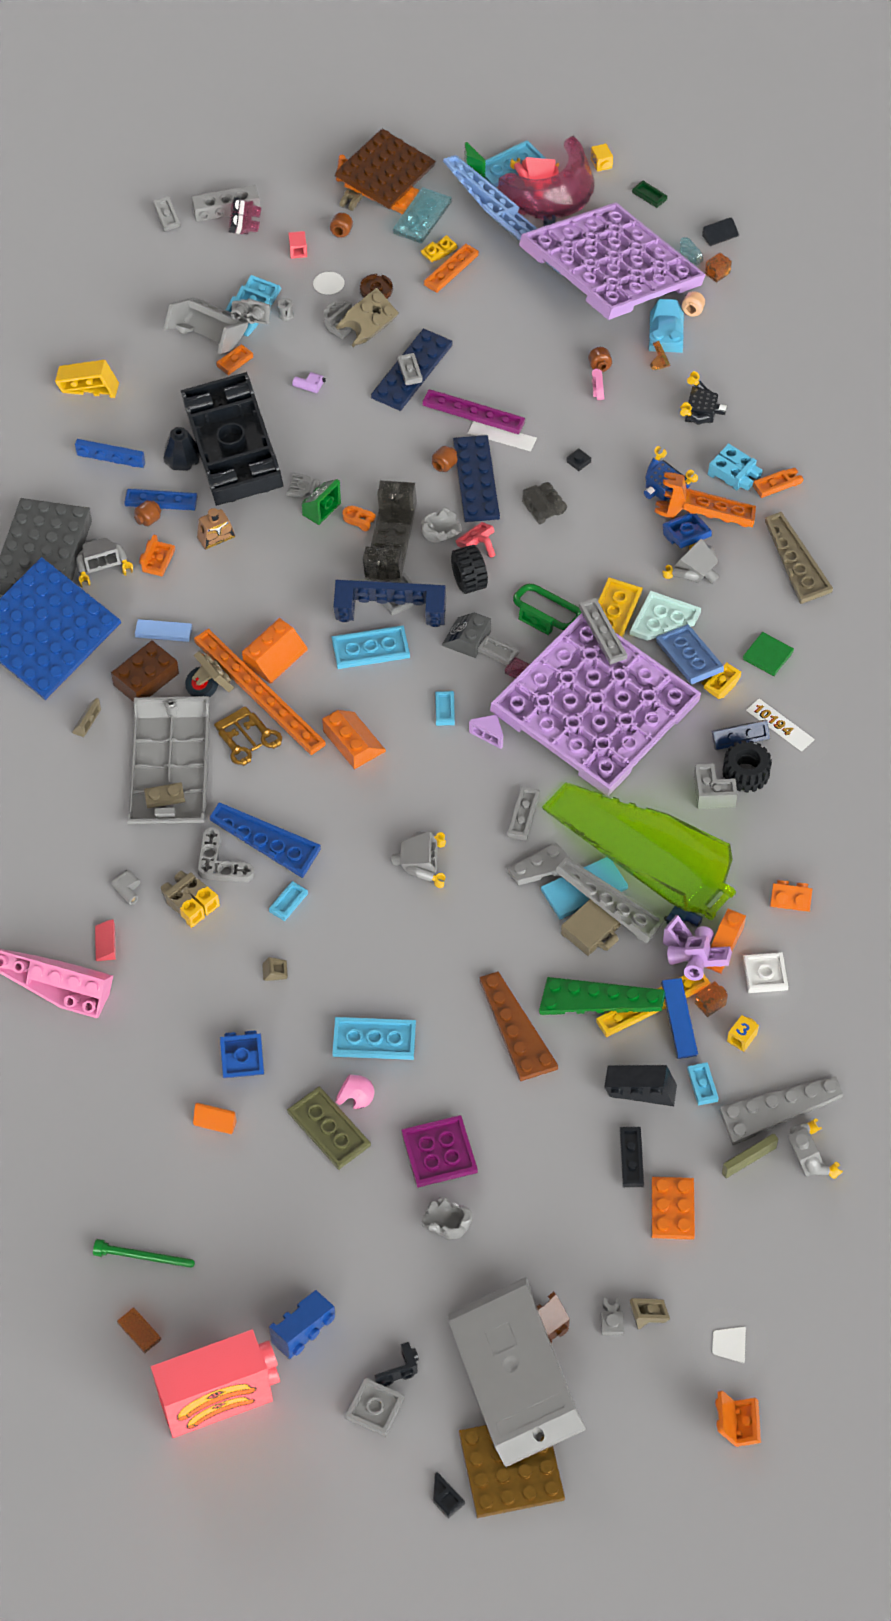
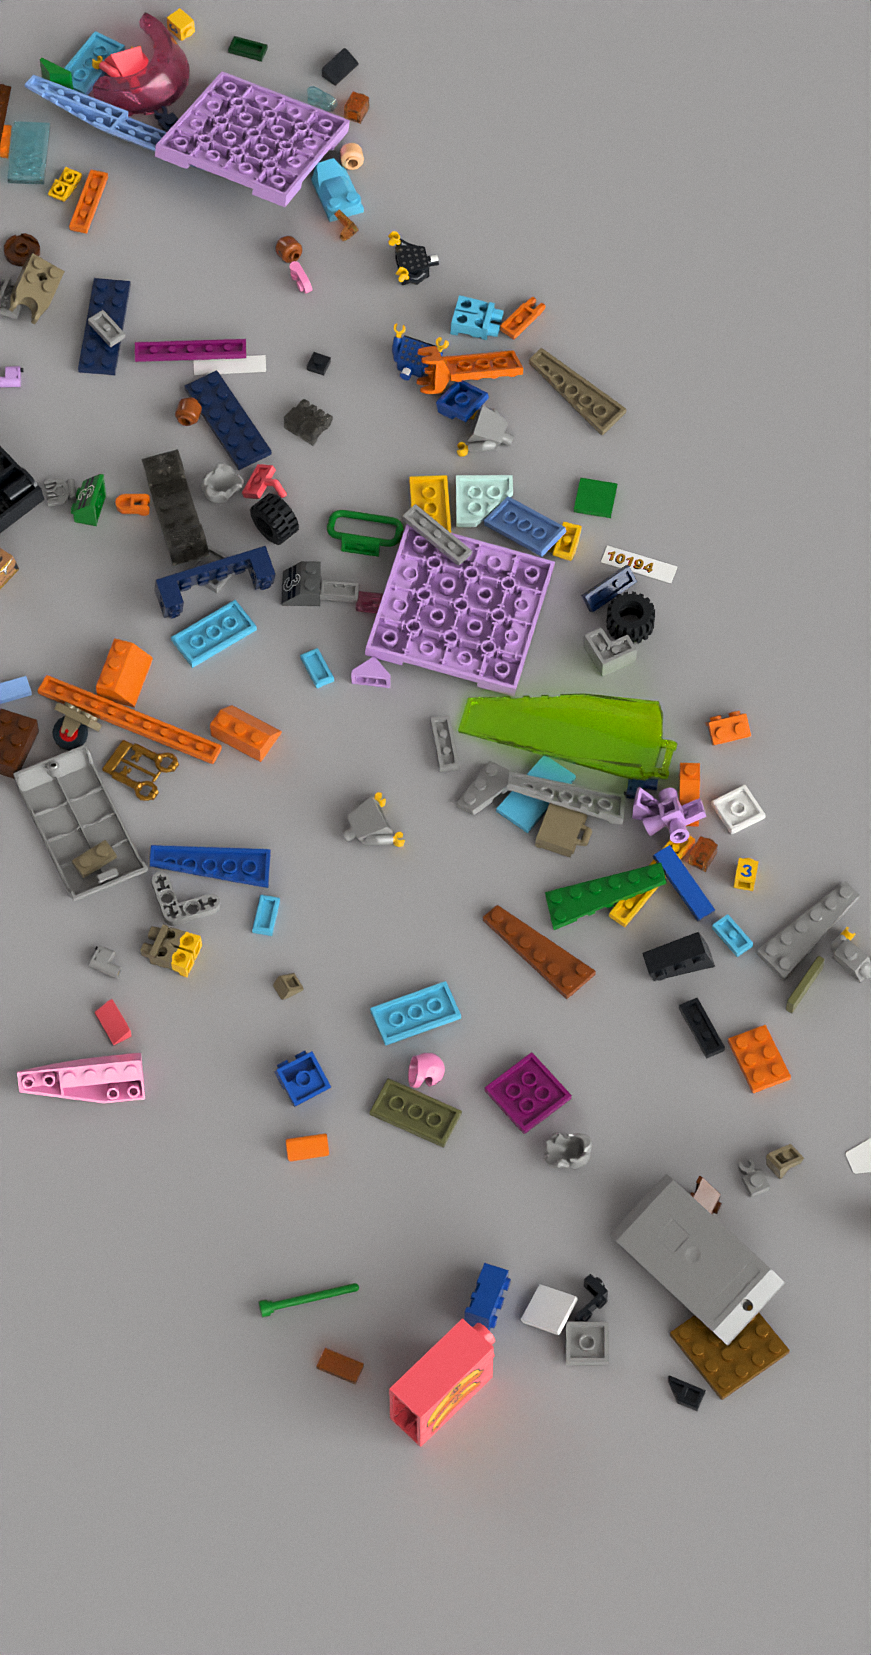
camera: 25 degrees left, 5 degrees up
(355, 1359) = (549, 1309): none -> white tile

